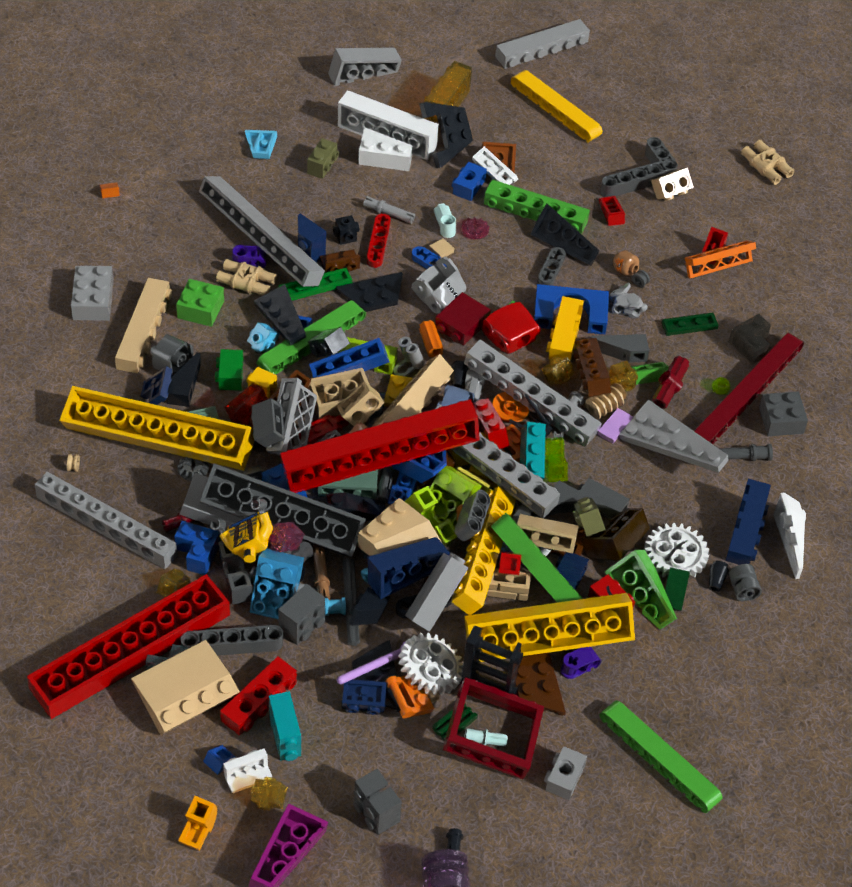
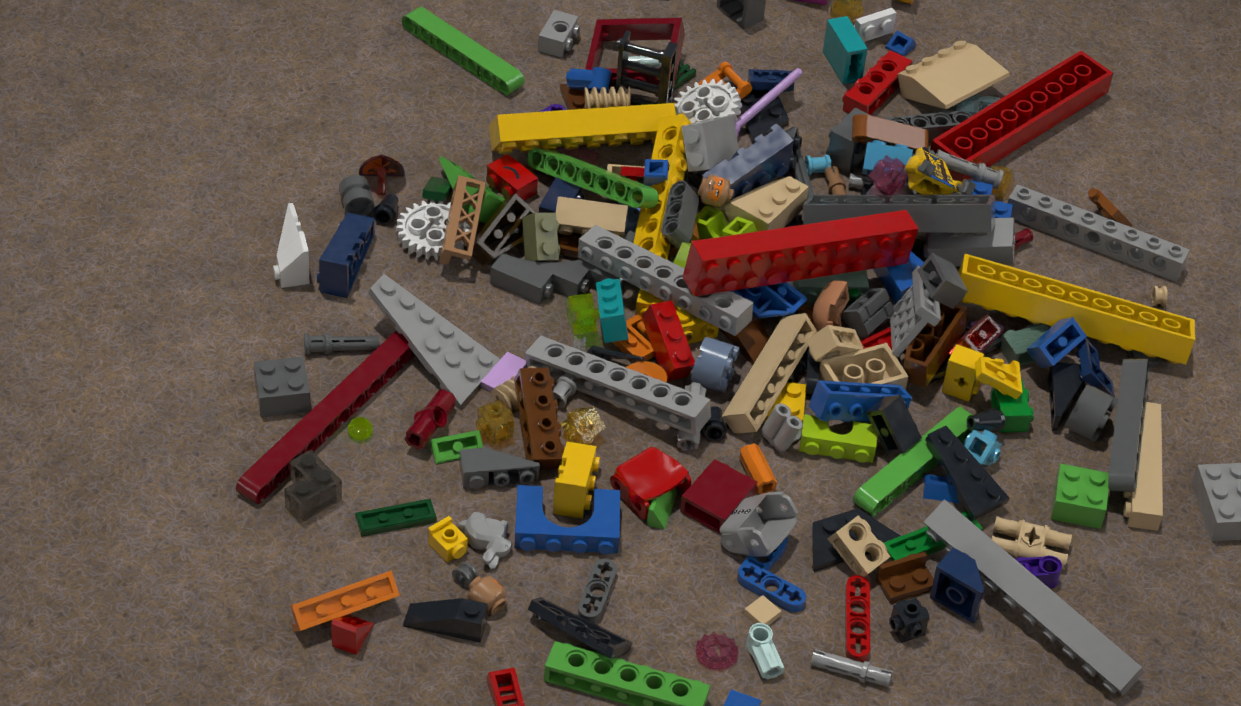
camera: 175 degrees right, 5 degrees down
(84, 530) = (1107, 207): none -> dark orange plate
(148, 334) = (1129, 425): none -> dark grey beam
(184, 396) = (1056, 342): none -> blue brick
(196, 566) = (978, 172): none -> light grey pin
(238, 366) = (999, 375): none -> yellow wing
(255, 349) = (991, 420): none -> black cone
(294, 582) = (870, 128): none -> beam
(371, 269) = (854, 551): none -> tan brick
(441, 527) = (715, 191): none -> medium nougat head
(491, 553) = (655, 171): none -> blue slope
(531, 663) = (606, 99): none -> tan piece
(541, 695) = (582, 78): none -> blue piece
(651, 251) = (449, 617): none -> black slope
(654, 300) = (447, 540): none -> yellow brick
(661, 529) = (454, 219): none -> medium nougat fence
(726, 606) = (381, 167): none -> clear red shield

